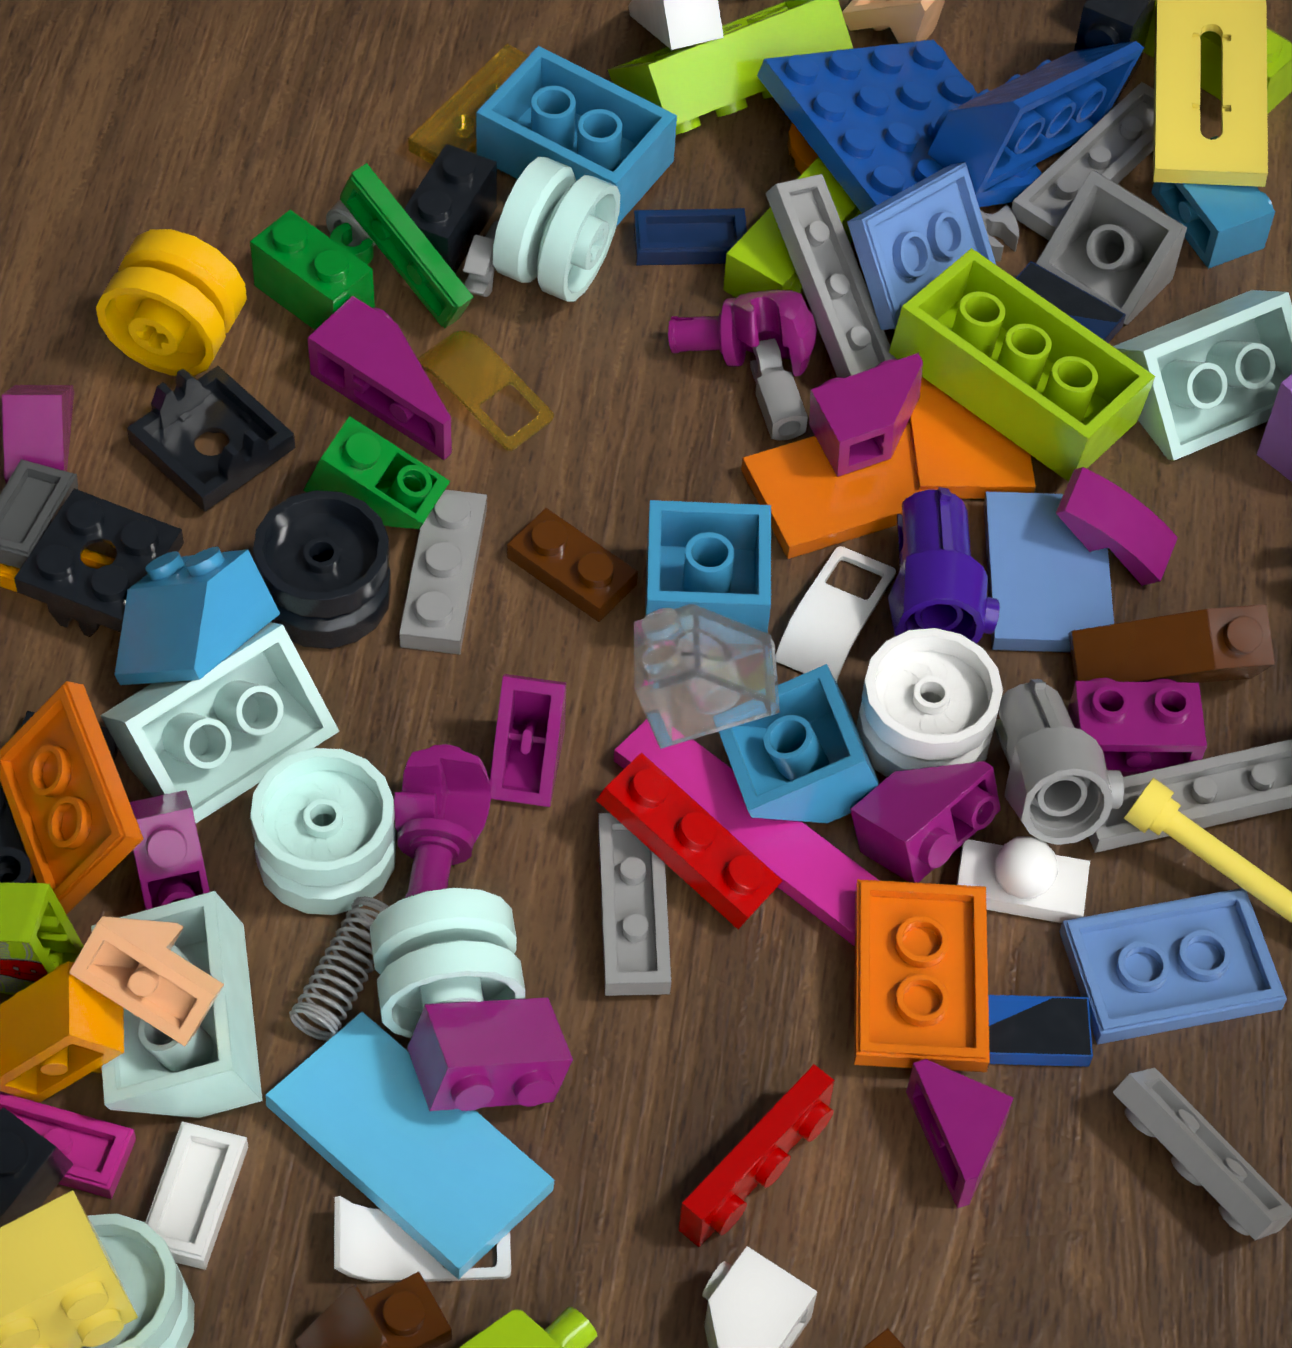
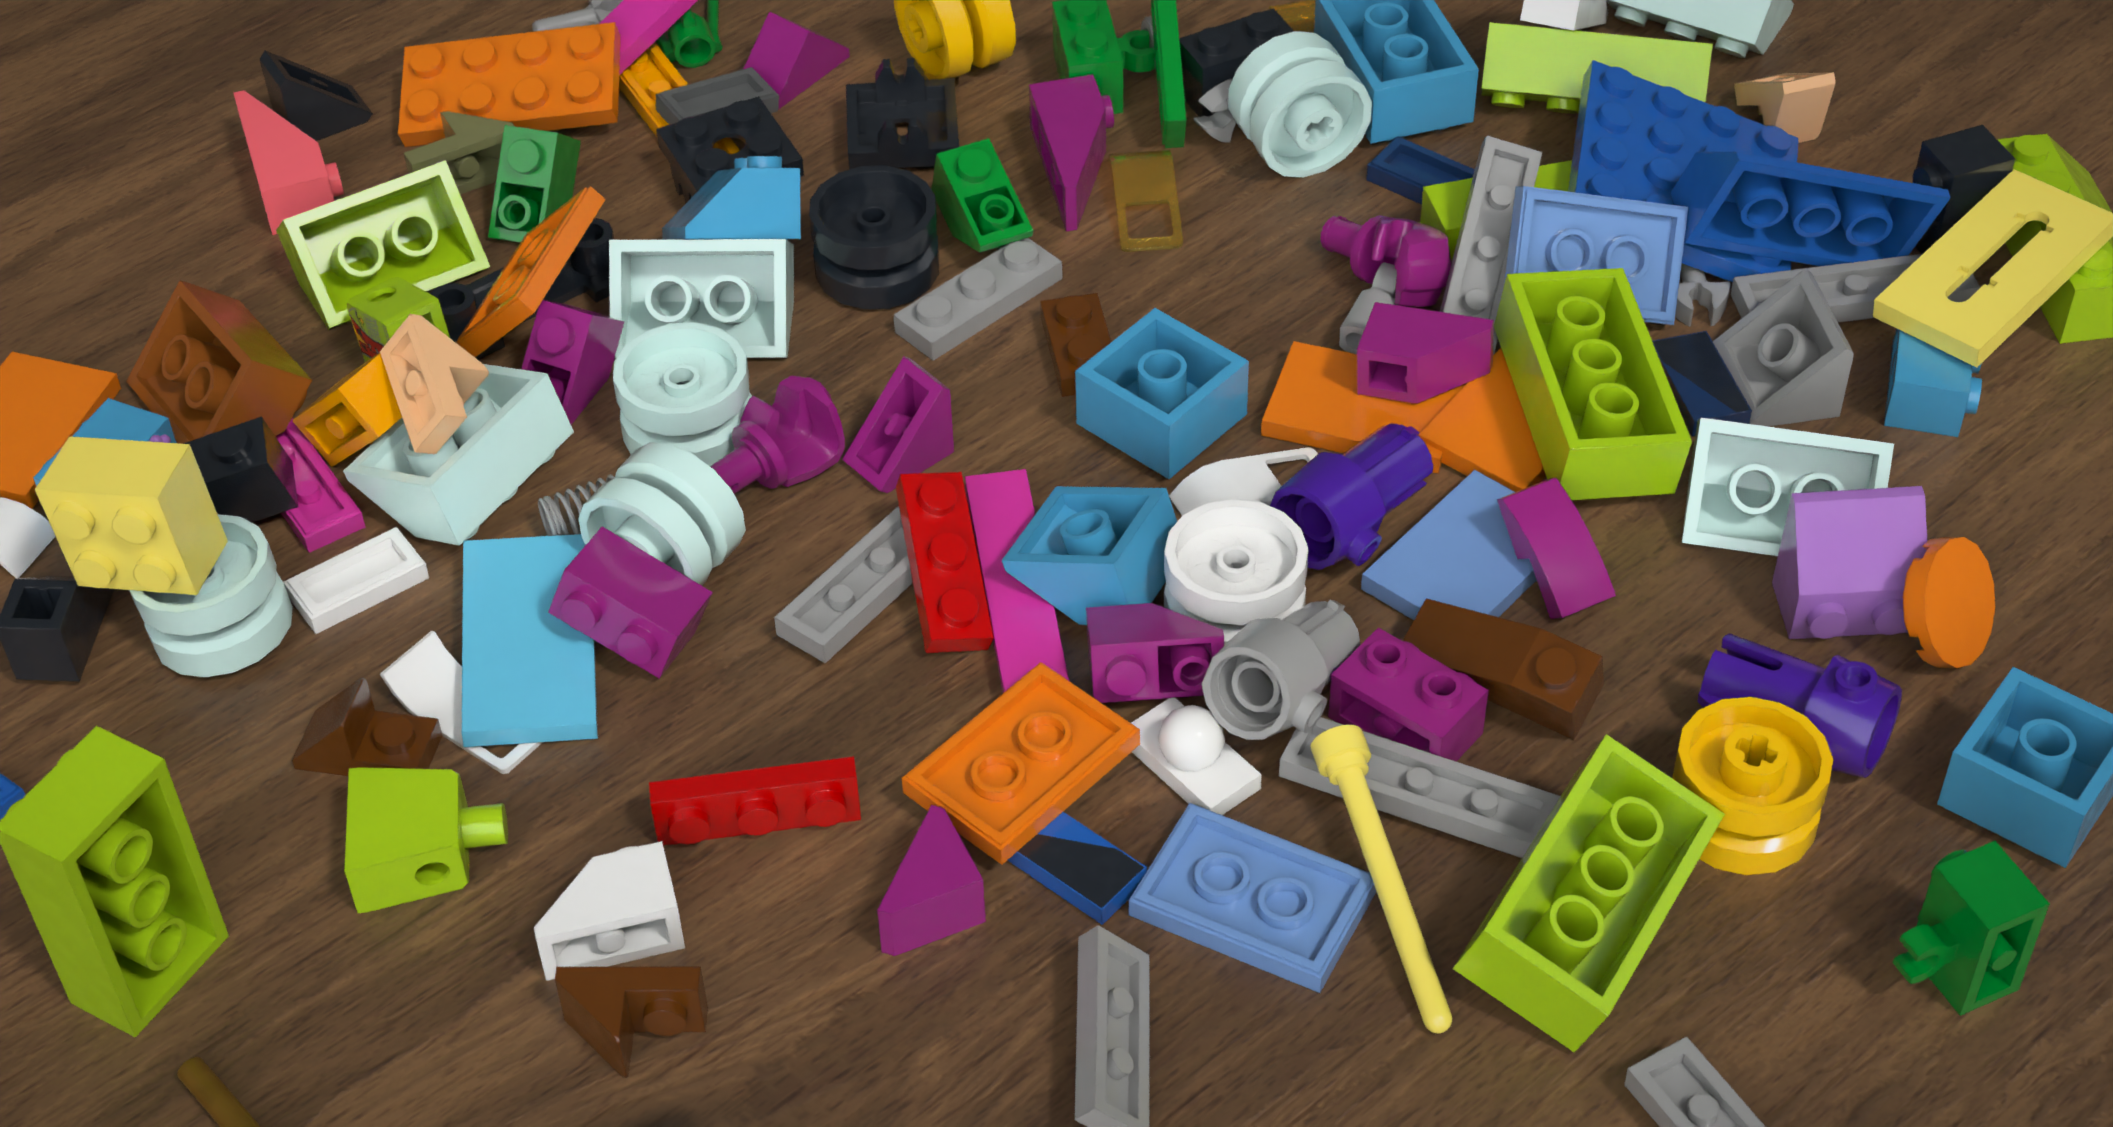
camera: 45 degrees right, 10 degrees down
(701, 673) = (1065, 443): clear slope -> none

